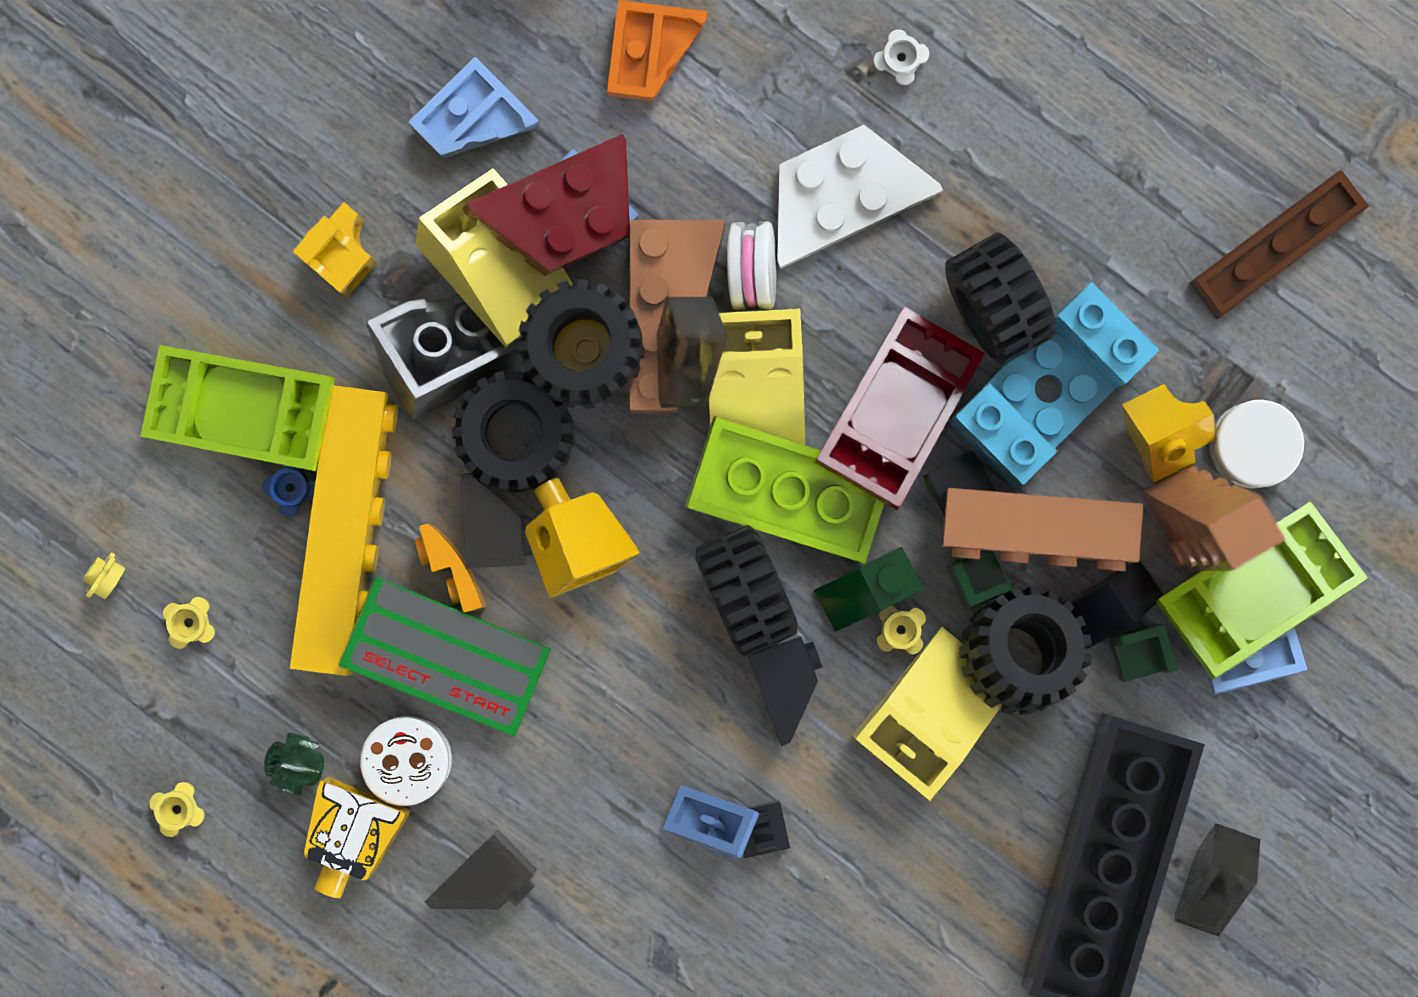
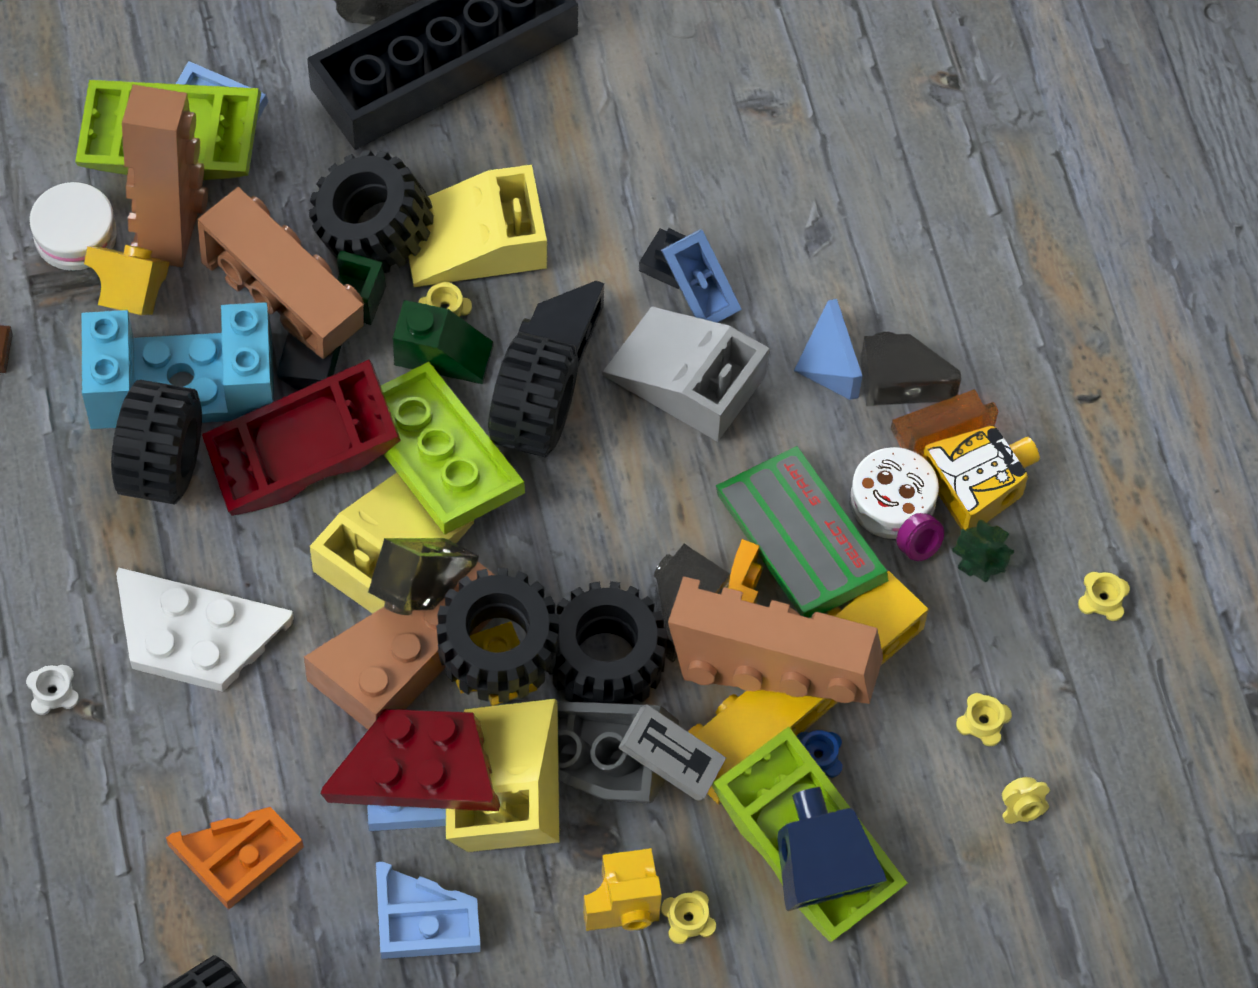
camera: 140 degrees left, 25 degrees down
(202, 388) = (825, 854): none -> dark blue torso
(268, 277) = (694, 904): none -> light yellow plate
(353, 736) = (920, 536): none -> magenta tile
(365, 518) = (772, 647): none -> nougat wedge
(376, 368) = (672, 752): none -> light grey tile
(417, 858) = (943, 420): none -> clear orange panel
(558, 845) = (830, 355): none -> medium blue slope
(576, 539) = (629, 529): yellow torso -> none
(658, 732) = (690, 368): none -> light grey slope
(751, 265) = (314, 616): white head -> none
(1116, 602) = (285, 199): black slope -> none
(1143, 652) = (286, 162): dark green panel -> none

